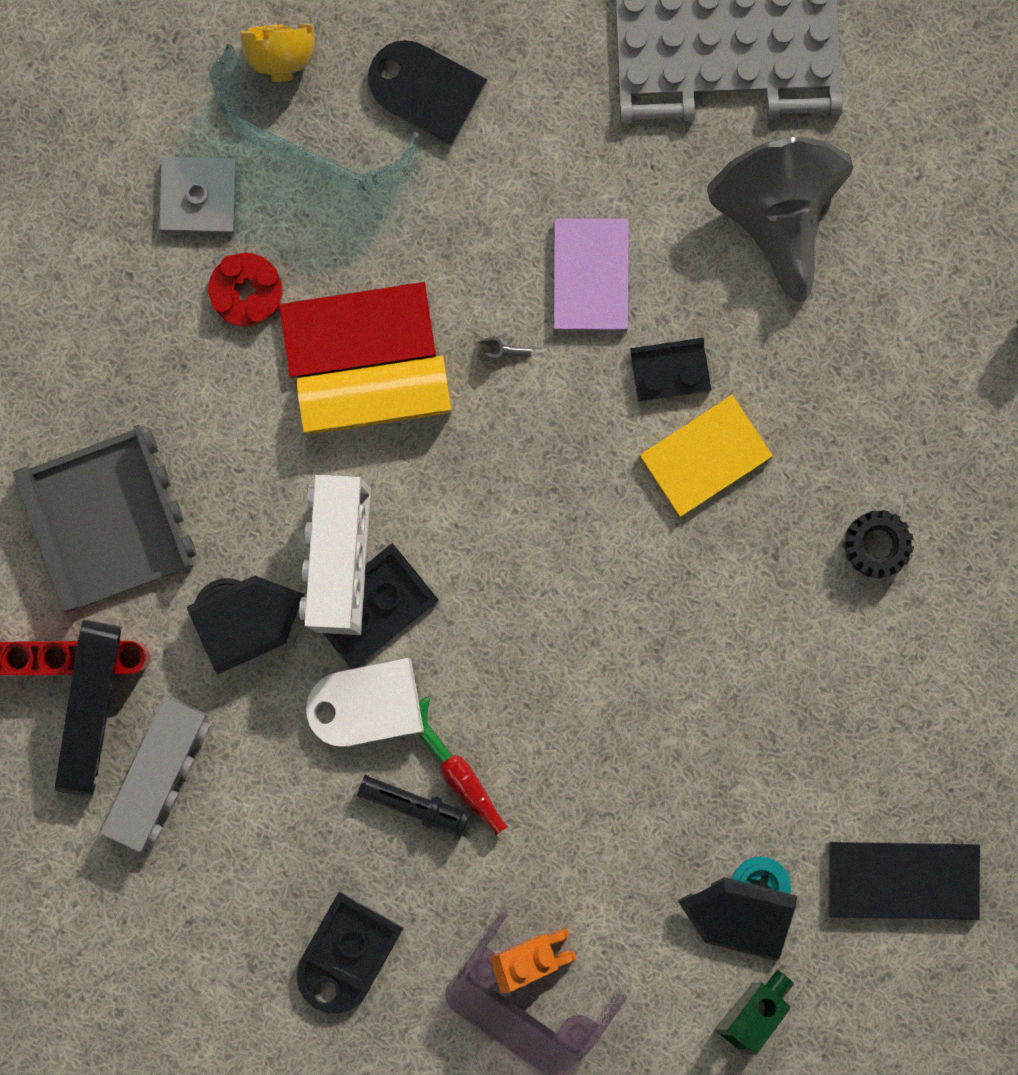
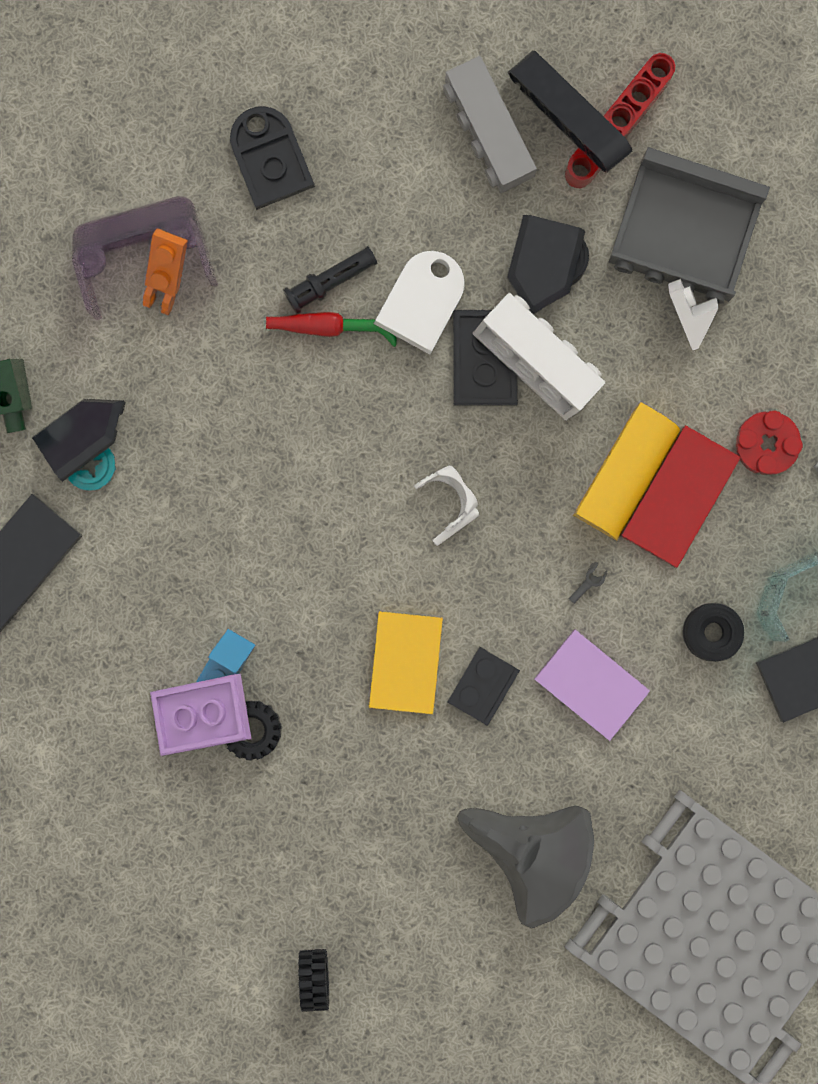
camera: 130 degrees right, 0 degrees up
(187, 445) = (694, 319): none -> white slope
(451, 183) = (731, 627): none -> black tyre
(516, 516) = (468, 500): none -> white helmet
(839, 616) = (227, 656): none -> dark azure slope
(902, 599) = (200, 715): none -> lavender tile

